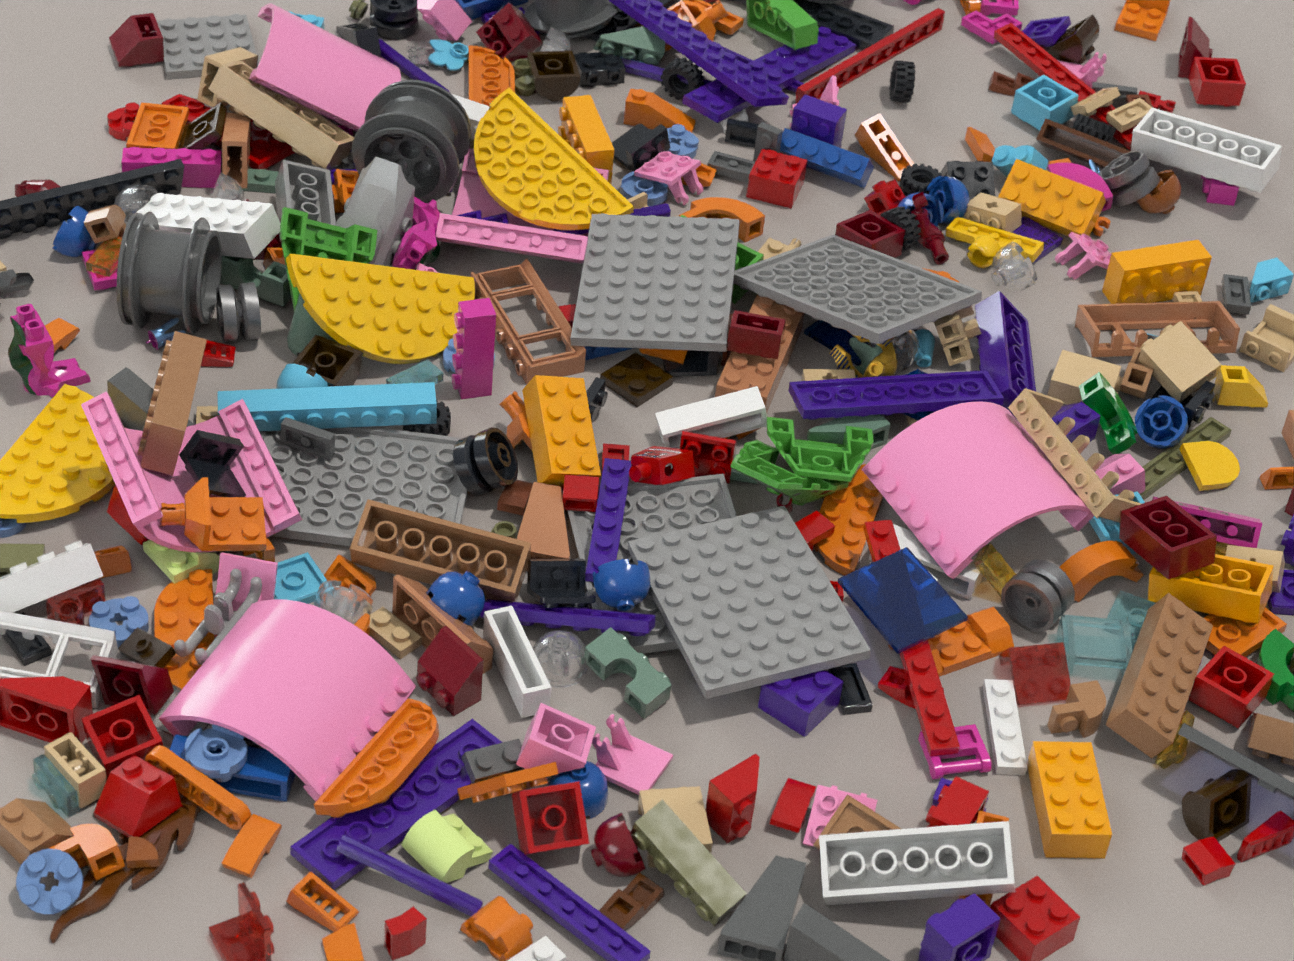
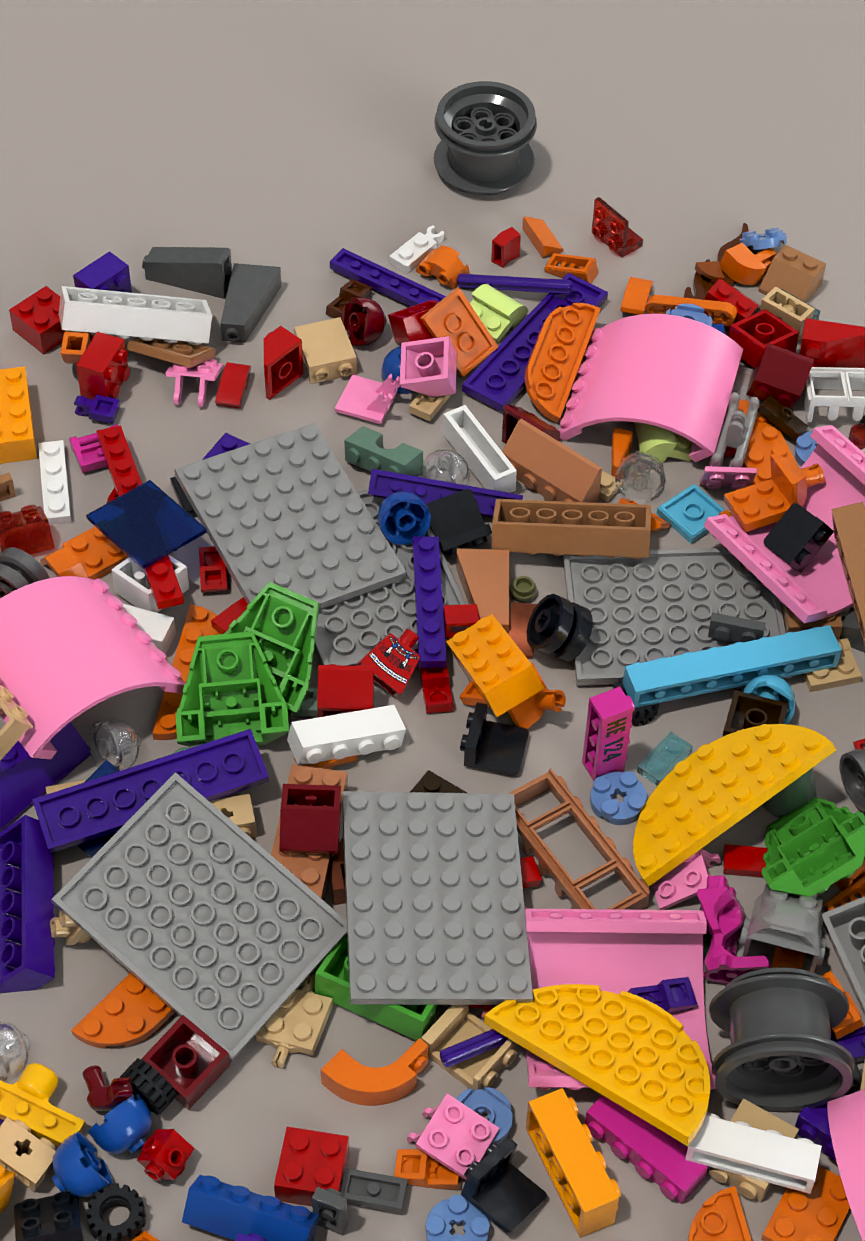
camera: 175 degrees right, 10 degrees up
(458, 595) = (545, 481): blue cylinder -> none
(492, 760) = (476, 366): dark grey plate -> none
(687, 863) = (311, 304): brick -> none

